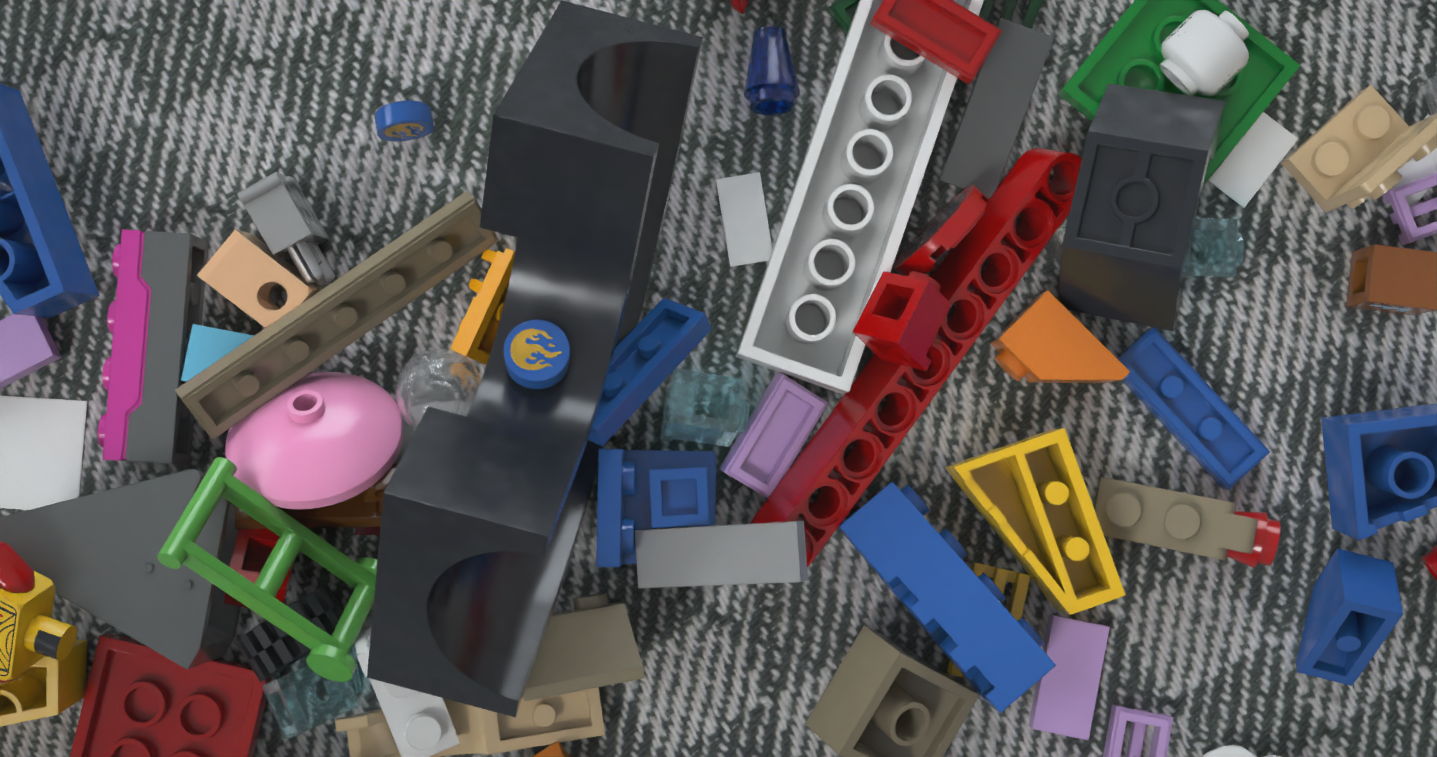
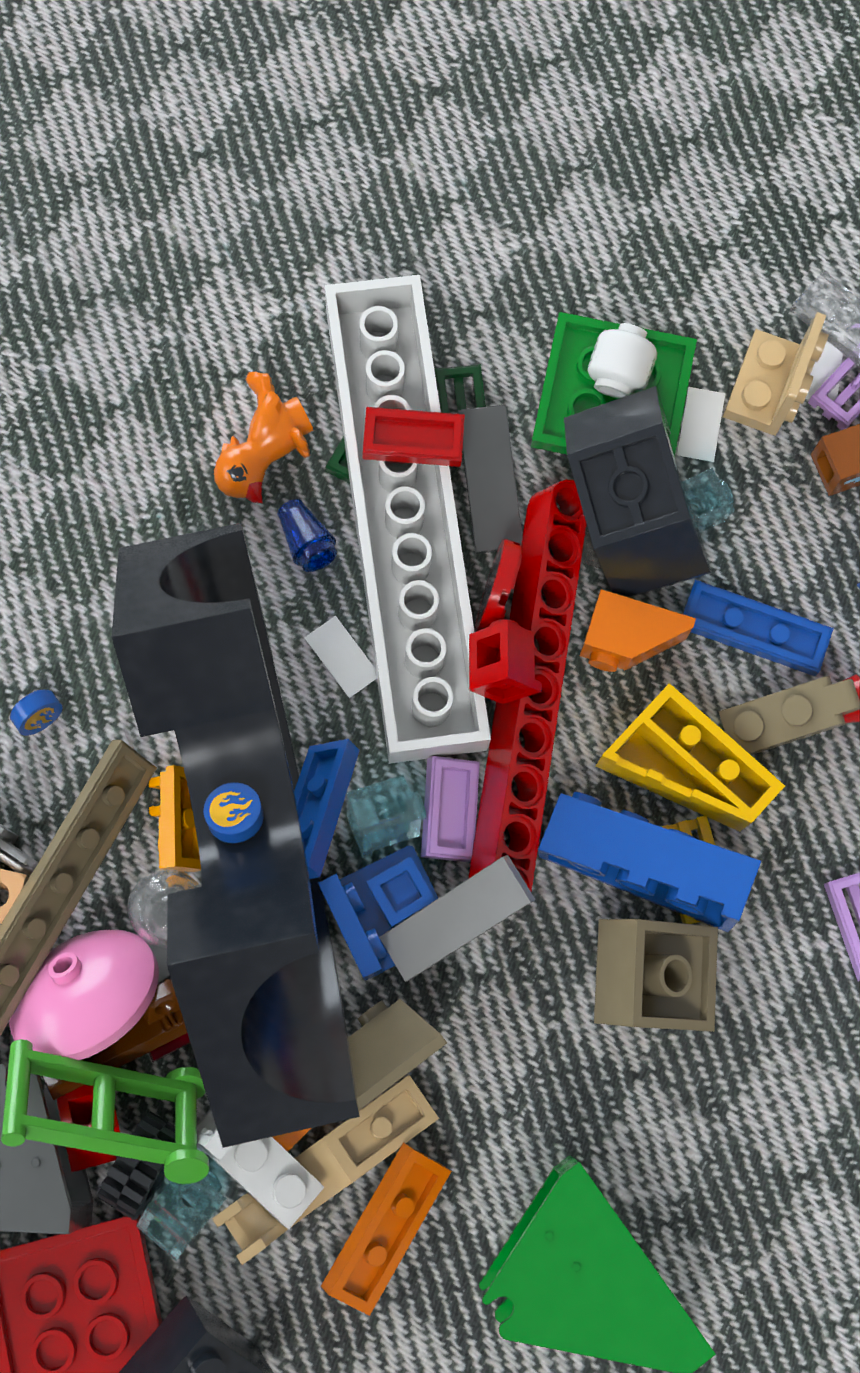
camera: 30 degrees left, 10 degrees down
(1068, 692) = (780, 880): lavender tile -> none

